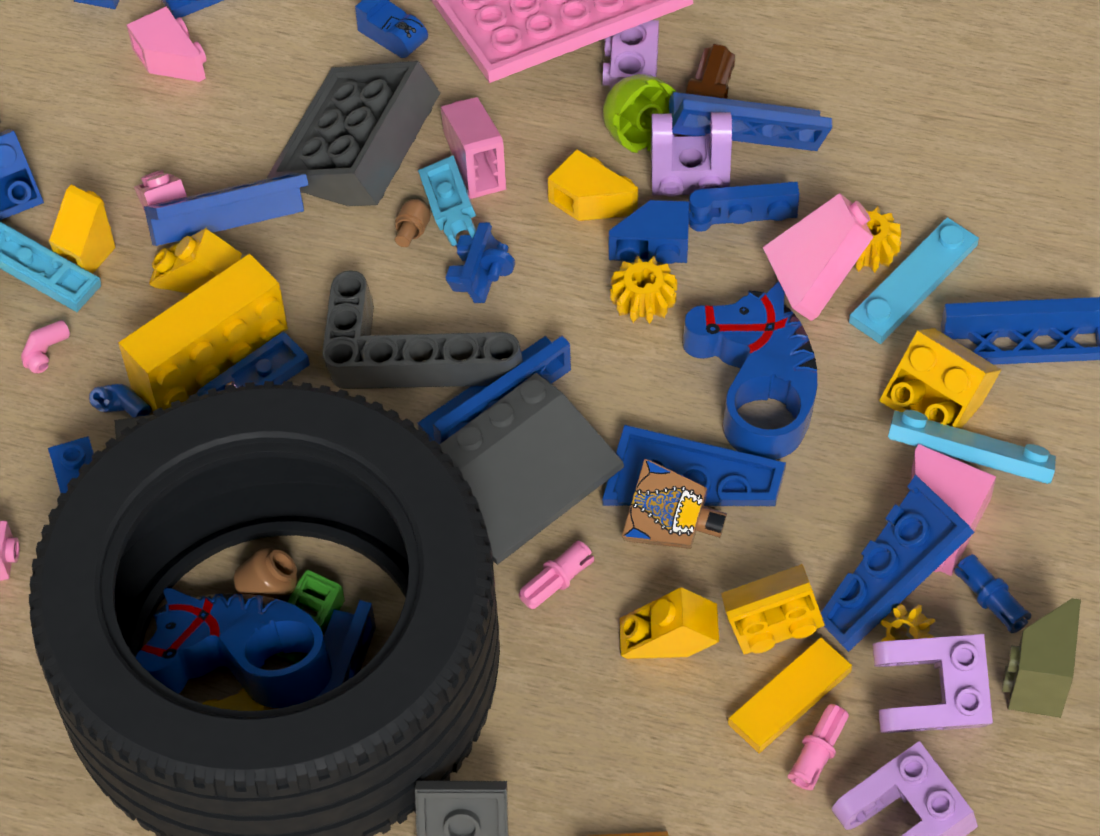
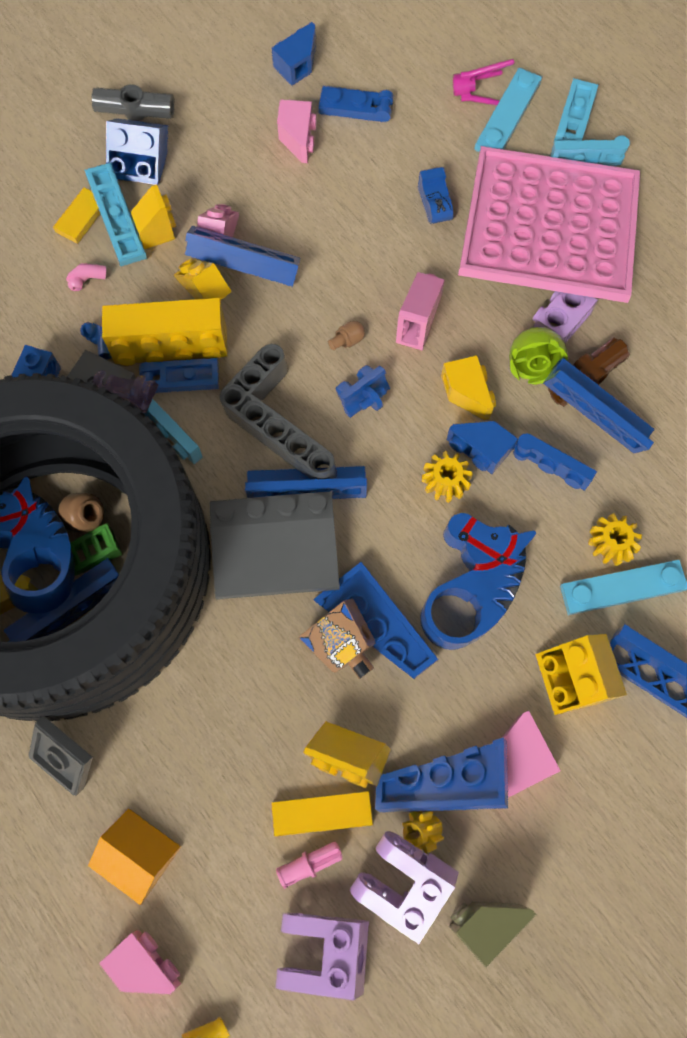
camera: 35 degrees right, 15 degrees up
(358, 131) = (361, 256): dark grey slope -> none
(448, 198) = (377, 336): medium azure plate -> none
(556, 575) = (249, 629): bright pink axle -> none
(670, 627) = (283, 716): yellow slope -> none
(690, 162) = (533, 396): lavender brick -> none
(819, 253) = (570, 531): bright pink slope -> none
(993, 593) = (498, 844): blue pin -> none
(1028, 461) = (565, 735): medium azure plate -> none

